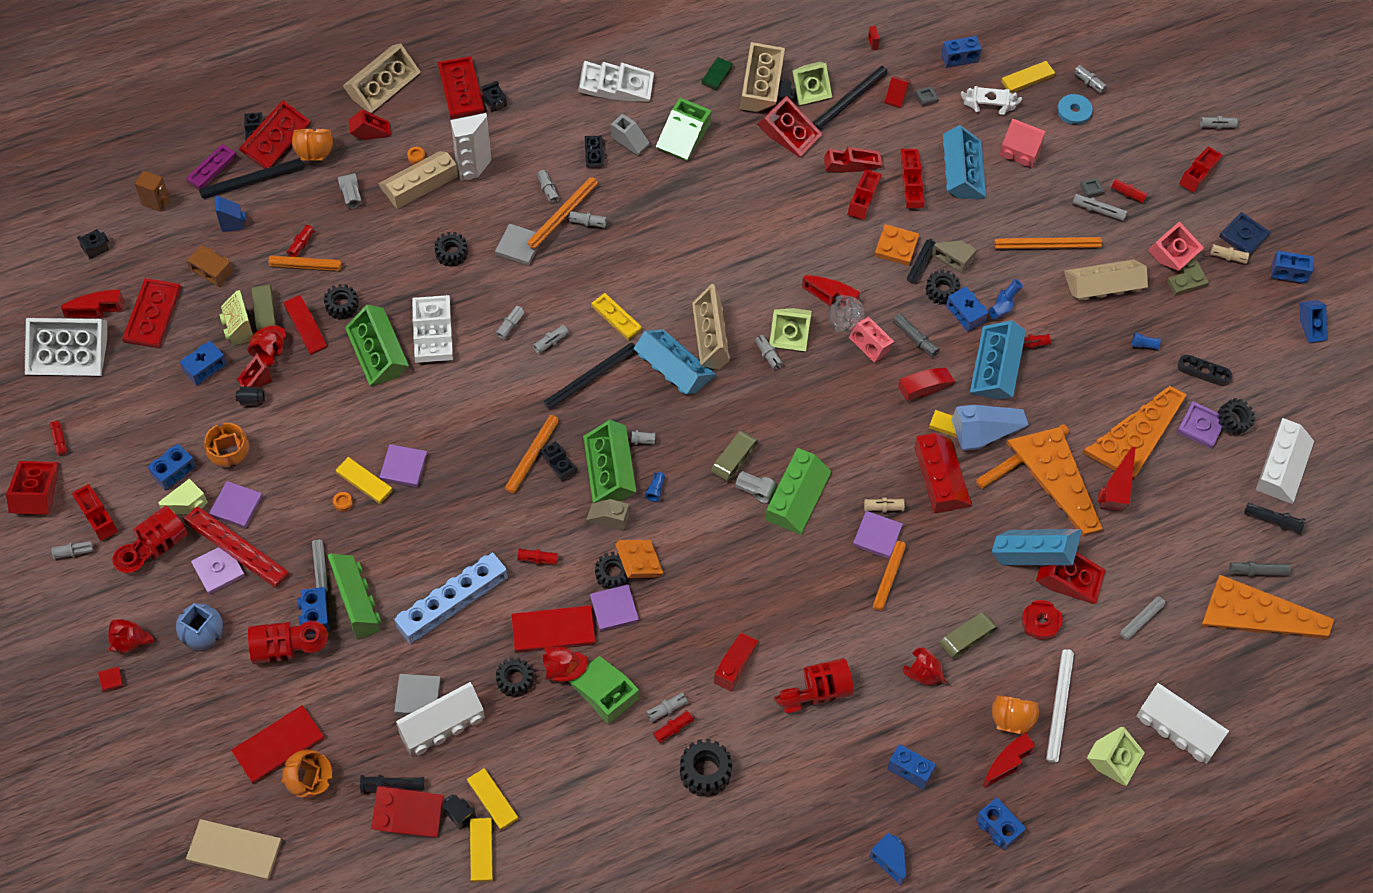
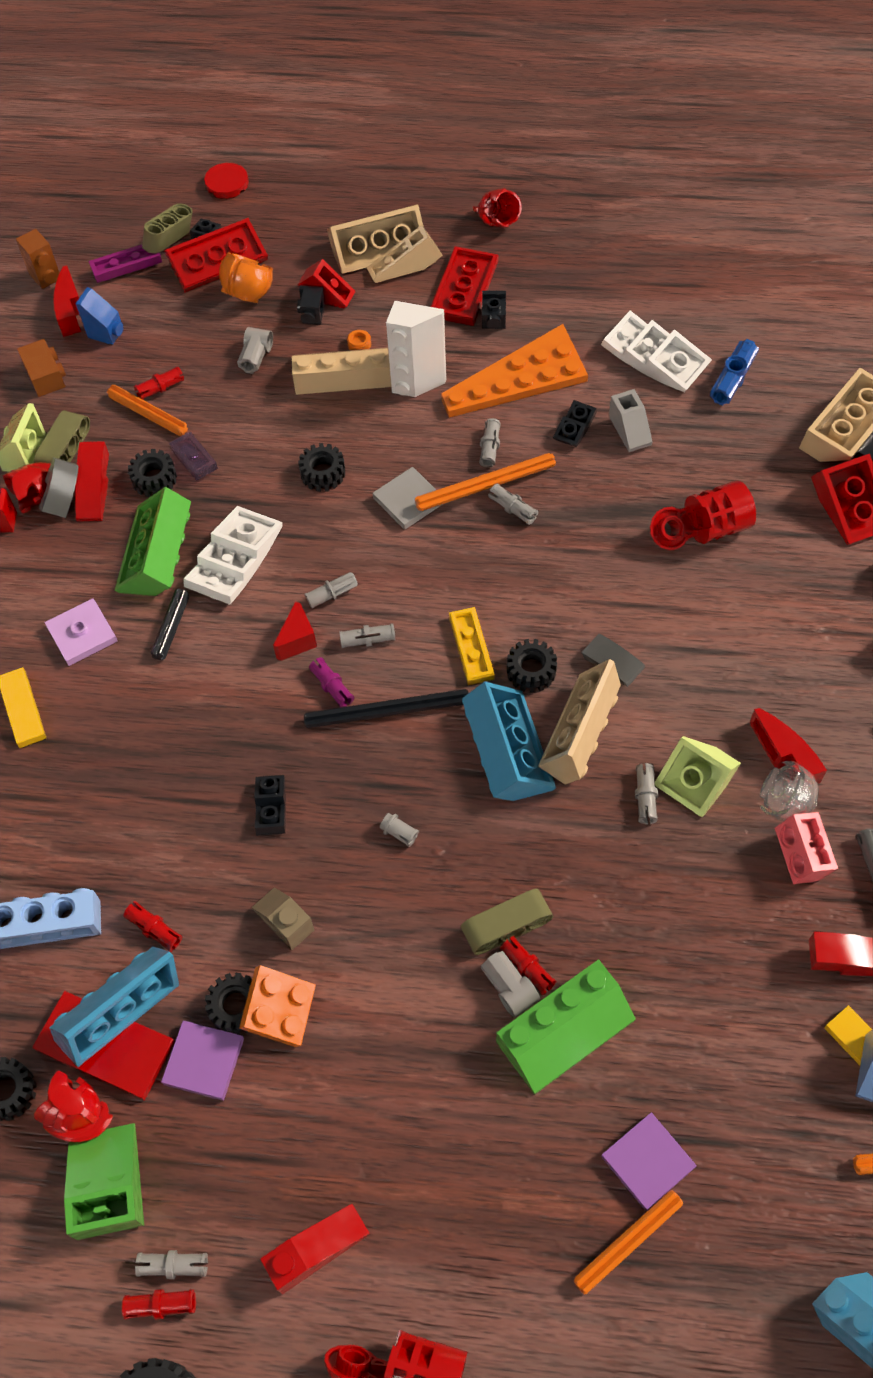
camera: 35 degrees right, 0 degrees up
(194, 214) = (65, 303): none -> red slope
(228, 130) = (167, 228): none -> olive beam
(239, 77) = (226, 180): none -> red tile
(251, 178) = (159, 291): black axle -> none
(292, 339) = (60, 487): none -> dark grey slope
(360, 278) = (193, 456): none -> clear purple plate
(367, 143) = (311, 304): none -> black brick
(367, 419) = (81, 631): none -> lavender plate
(403, 465) = (79, 712): medium lavender tile -> none
(410, 84) = (408, 256): none -> tan slope
(422, 389) = (169, 624): none -> black axle
(452, 22) = (499, 208): none -> red helmet
(509, 357) = (295, 635): none -> red slope
(531, 454) = (242, 777): orange axle -> none
(542, 128) = (529, 371): none -> orange wing
(547, 376) = (331, 682): none -> magenta pin
(549, 600) = (115, 1005): none -> dark azure slope
(609, 462) = (331, 843): bright green slope -> none
(654, 490) = (367, 912): blue pin -> none
(660, 320) = (534, 652): none -> black tyre
(673, 75) = (734, 372): none -> blue piece
(684, 129) = (708, 442): slope -> none
(698, 284) = (626, 664): none -> dark grey slope
(711, 176) = (705, 516): none -> red cylinder
(717, 73) = (795, 393): dark green tile -> none
(759, 471) = (528, 965): none -> red pin
(884, 505) = (685, 1118): tan pin -> none
(941, 473) = (805, 1116): red slope -> none

